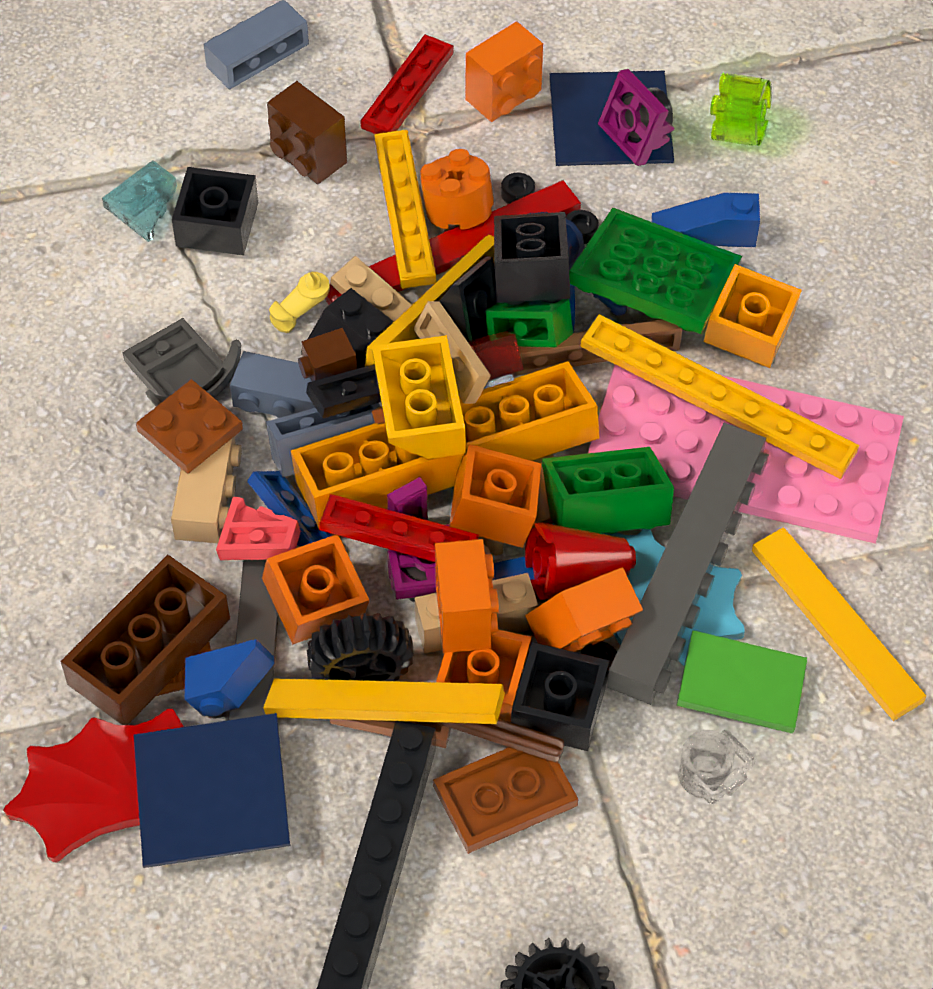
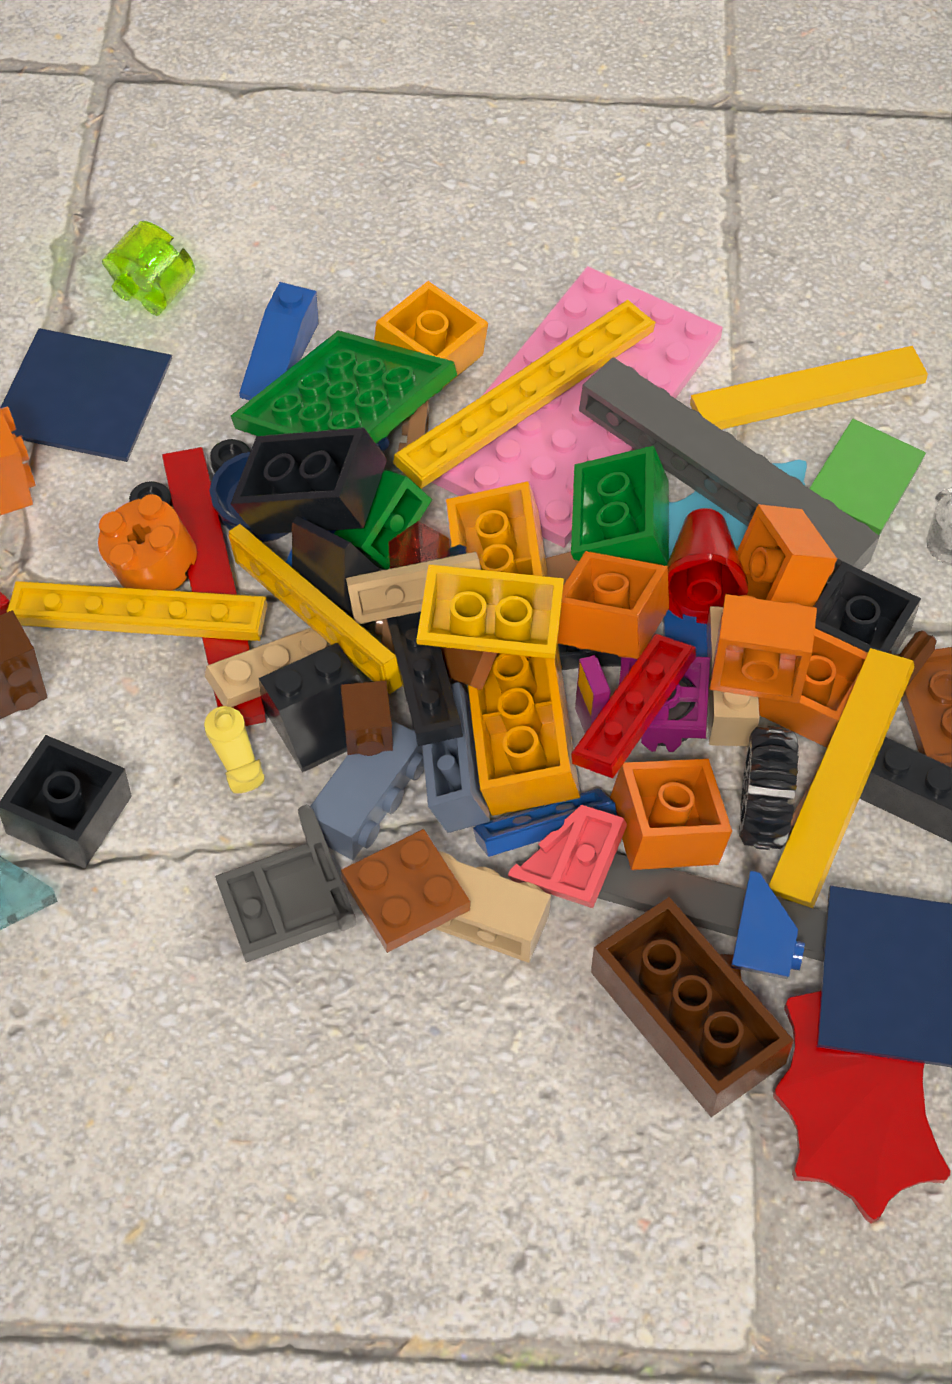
camera: 75 degrees left, 0 degrees up
(637, 116) = (120, 352): magenta piece -> none

